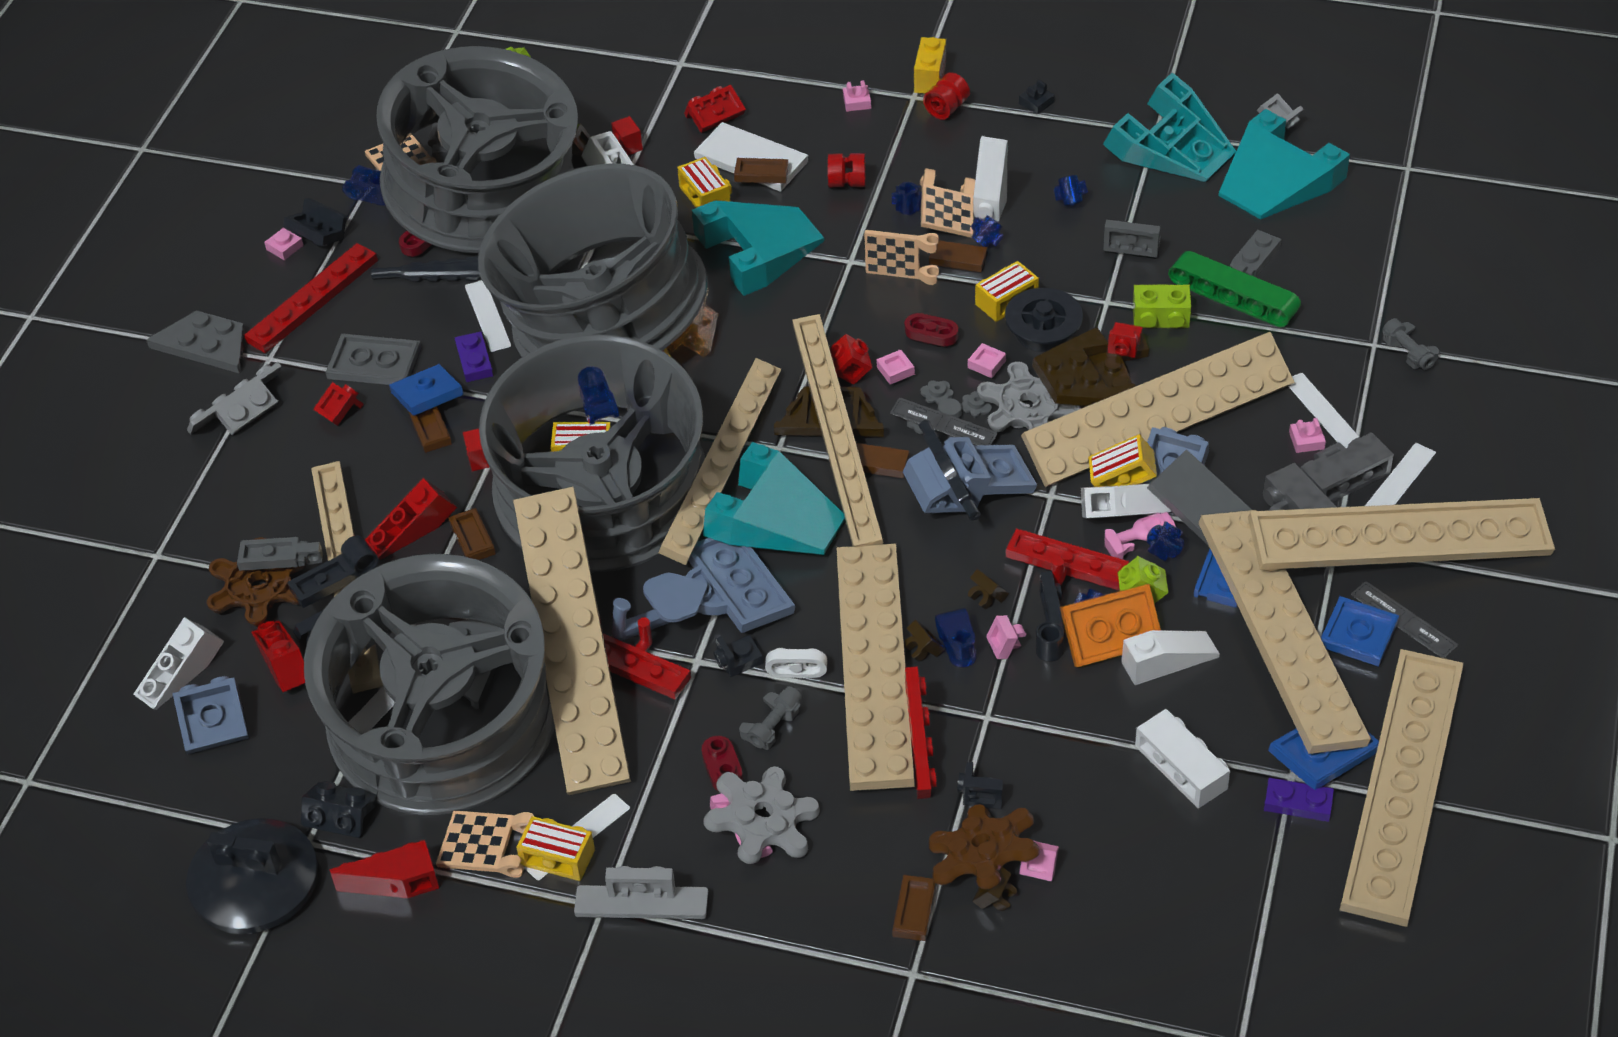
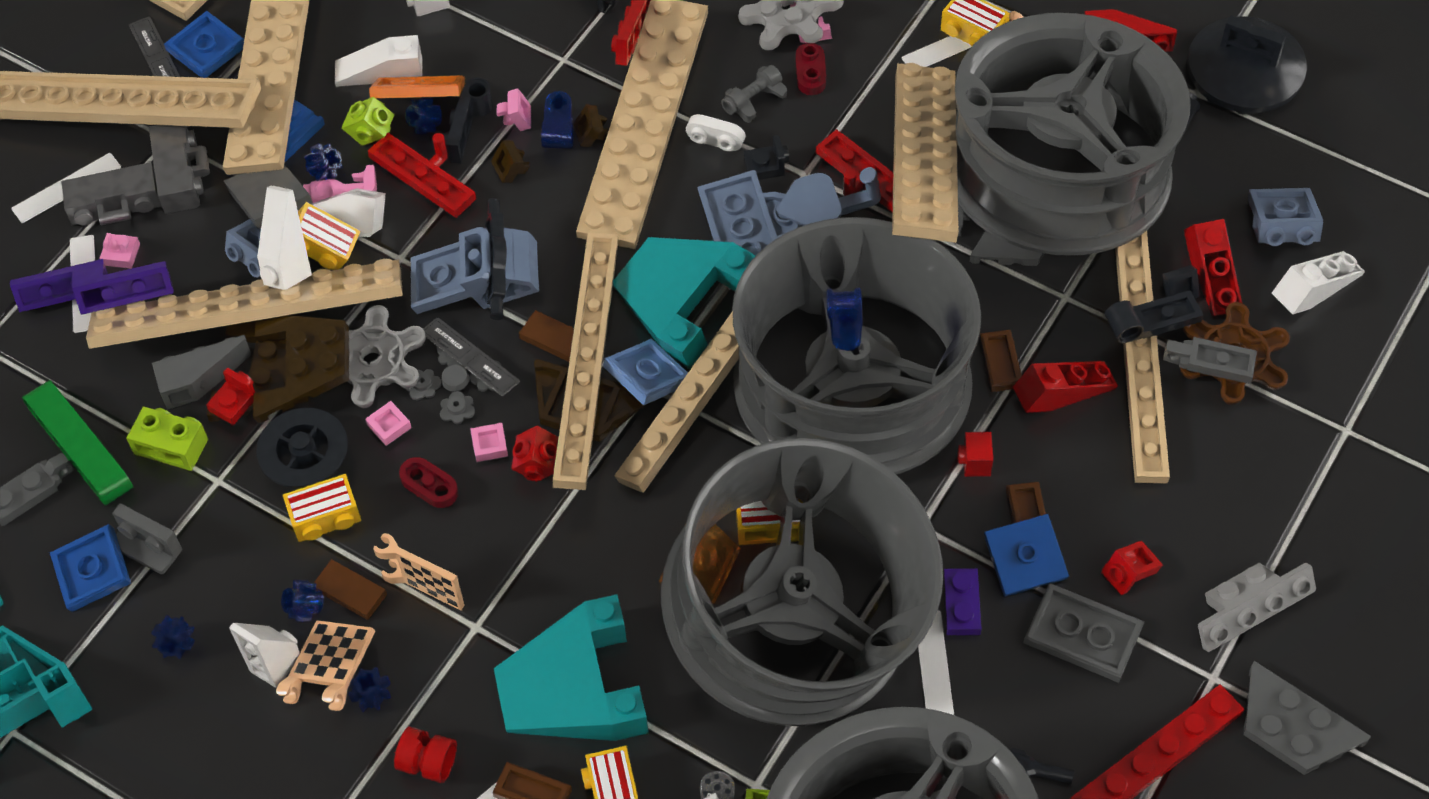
camera: 165 degrees left, 10 degrees up
(786, 434) = (646, 371): none -> medium blue tile
(1141, 419) = (281, 244): none -> white slope
(1166, 213) = (90, 568): none -> blue plate
(1173, 350) = (196, 372): none -> dark grey slope
(1301, 384) = (92, 286): none -> dark purple bracket

